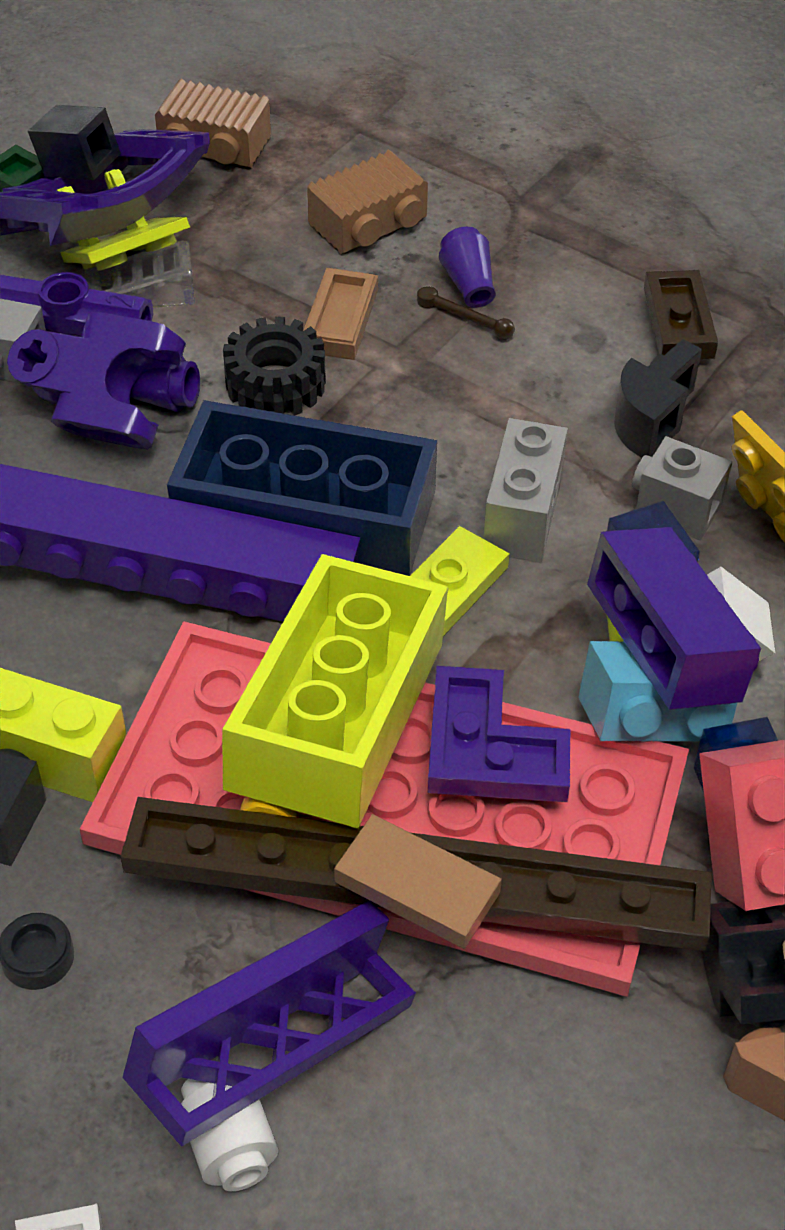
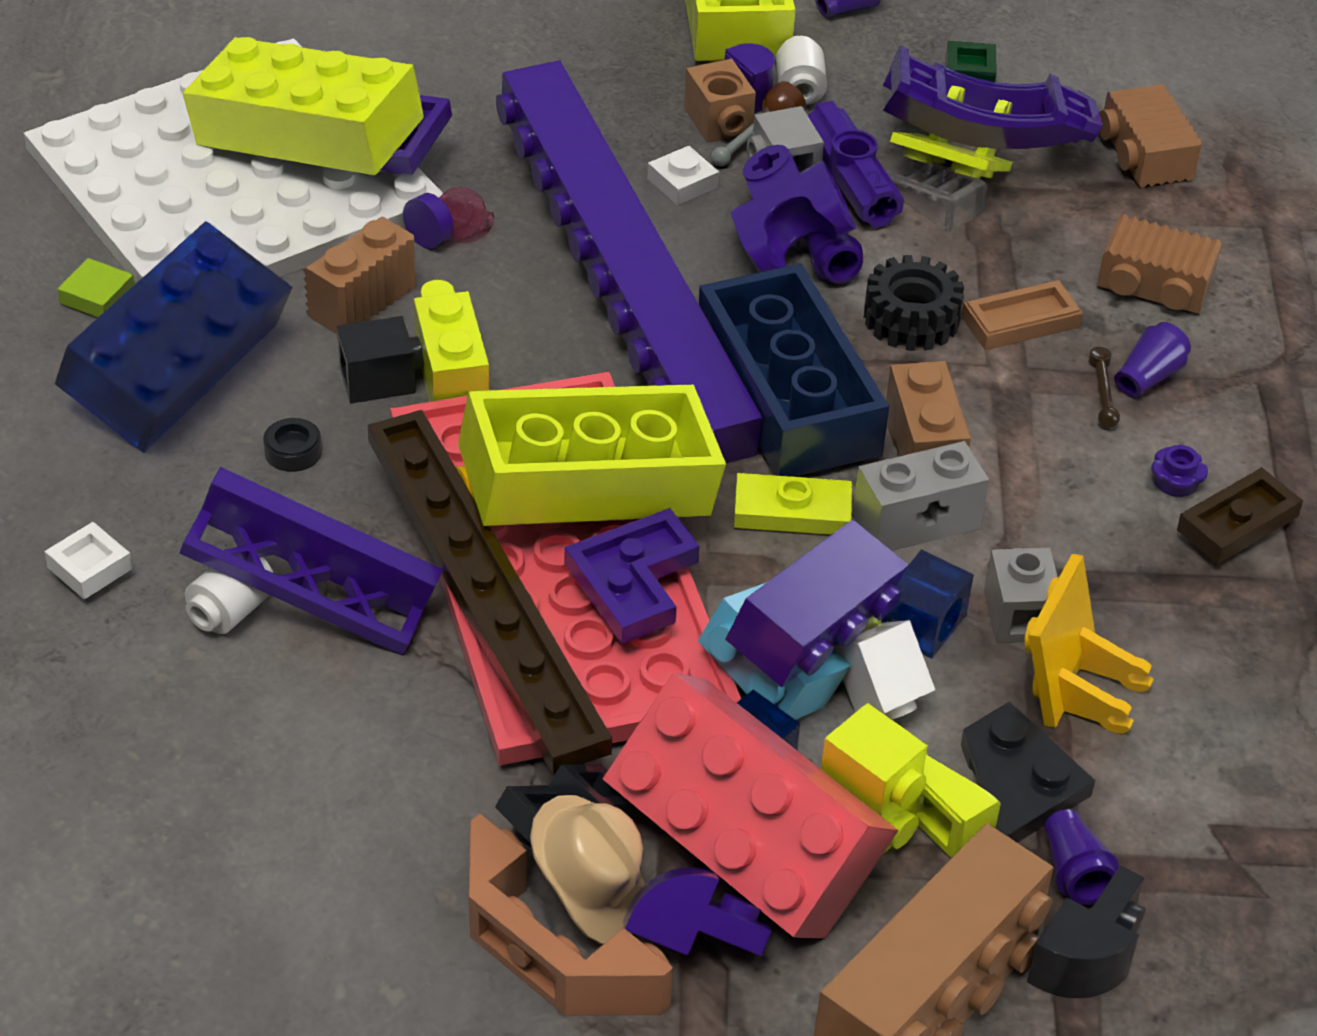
camera: 55 degrees right, 5 degrees down
(74, 142) = (1012, 65): black brick -> none
(418, 881) = (463, 573): medium nougat tile -> none
(465, 432) = (923, 408): none -> medium nougat brick
(598, 322) = (1178, 470): none -> dark purple plate
(655, 397) = (1117, 535): black brick -> none

